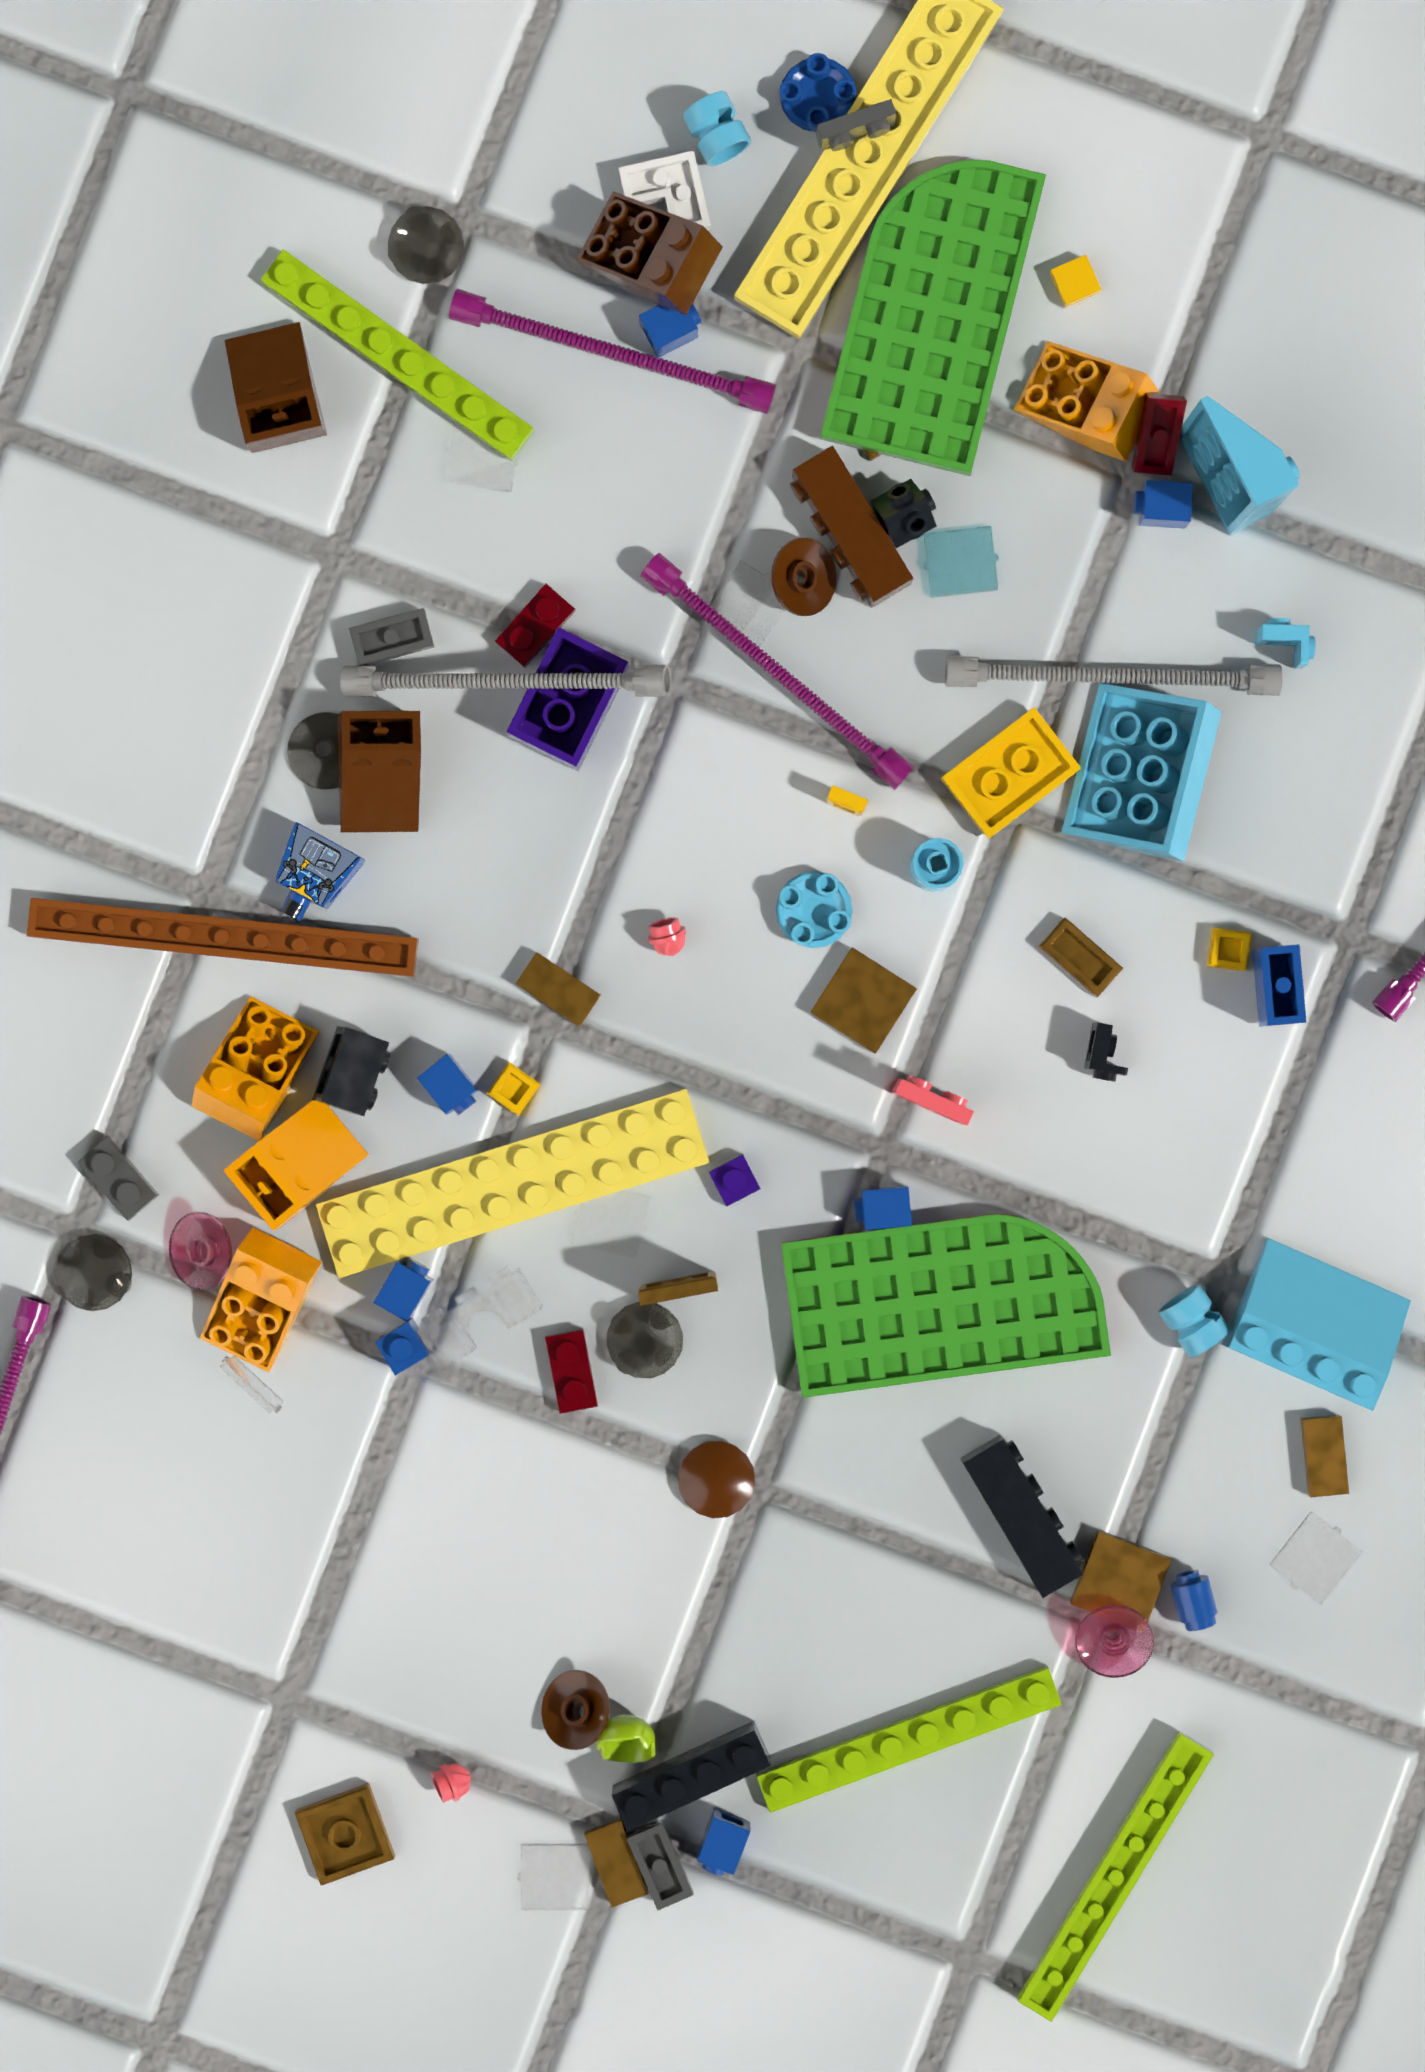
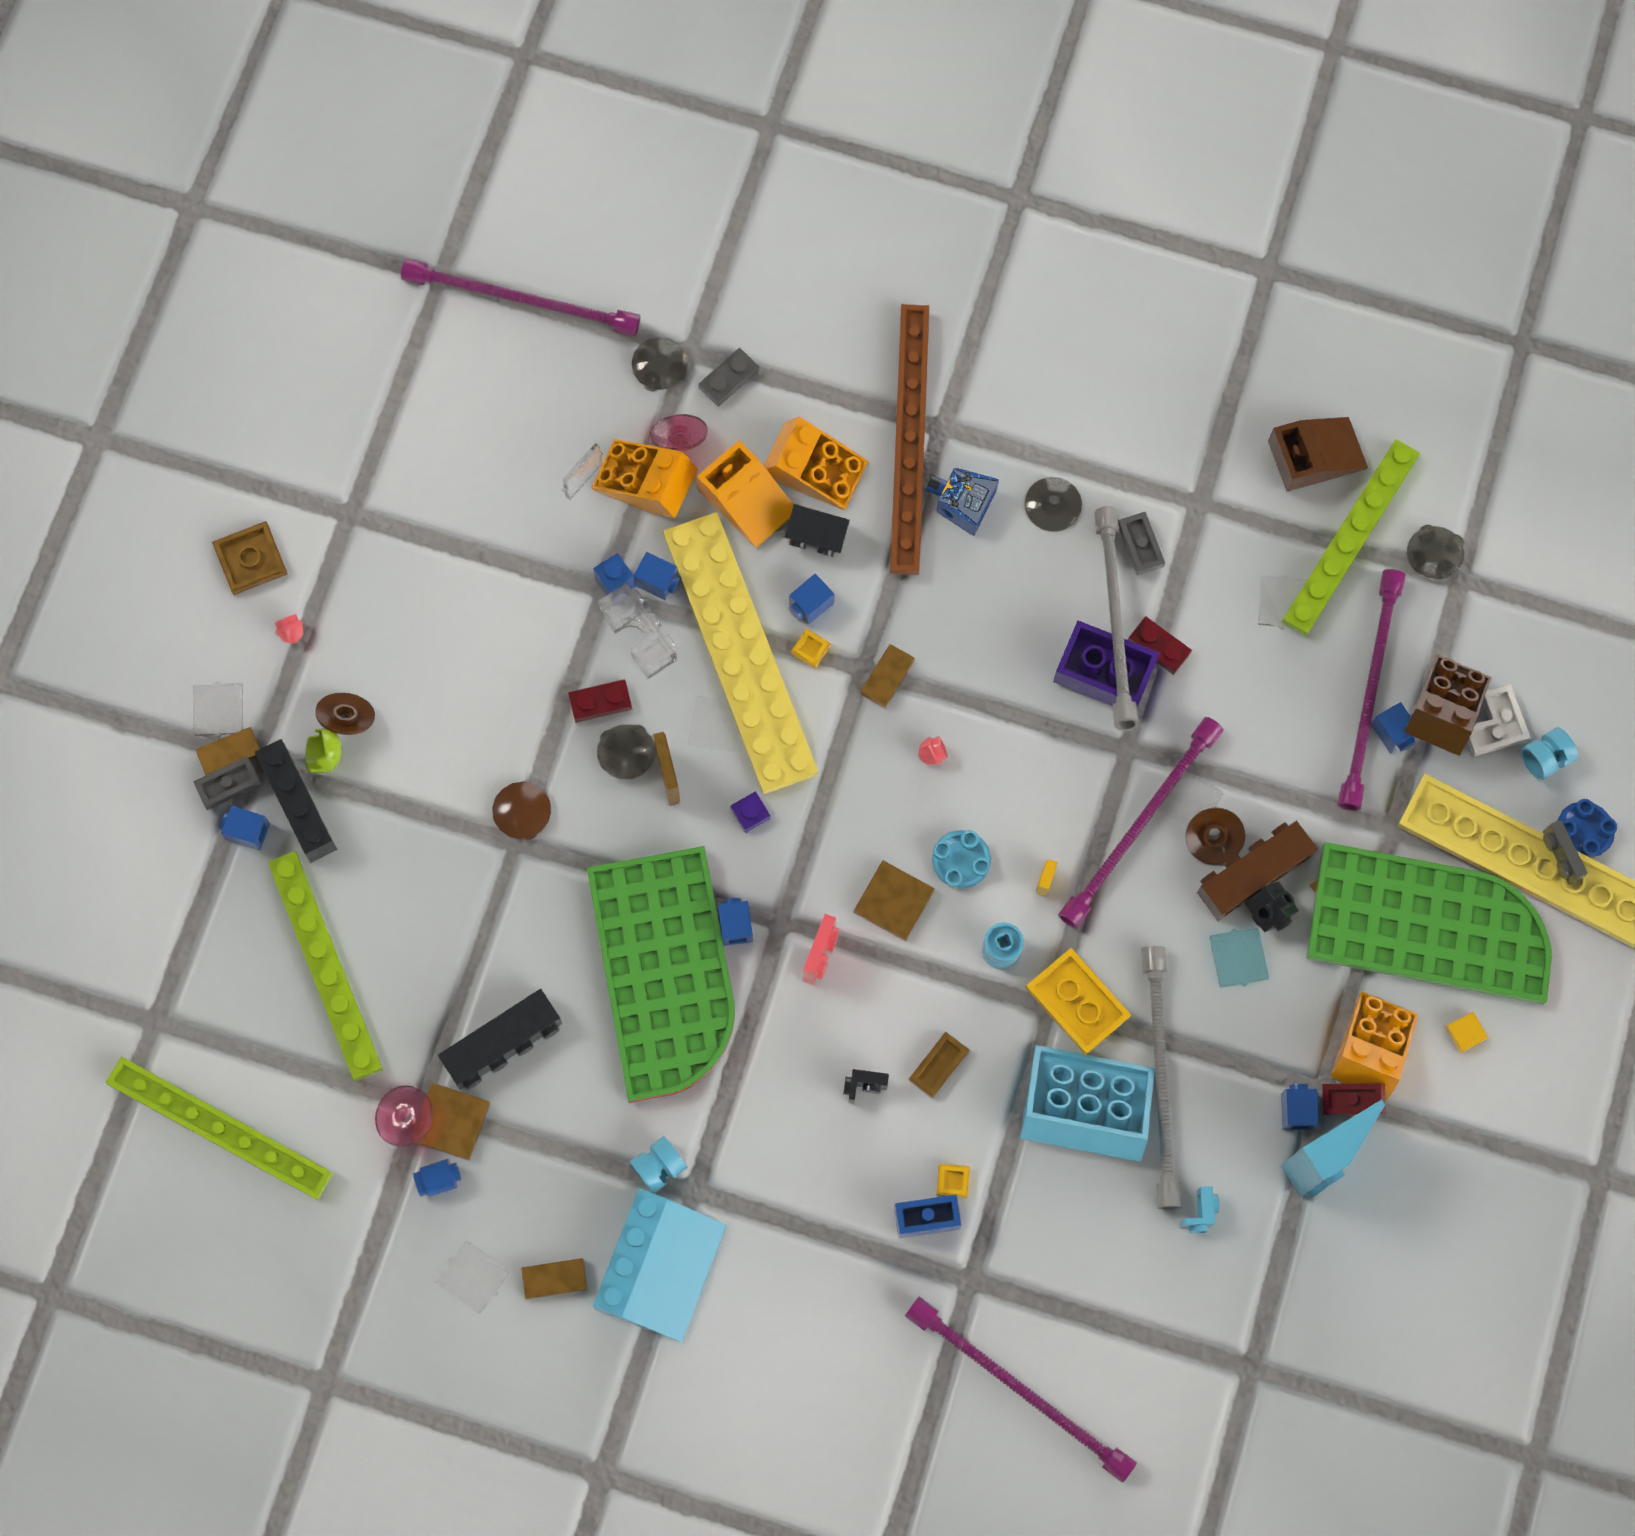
camera: 85 degrees right, 15 degrees down
(379, 771) = (1041, 536): reddish brown slope -> none

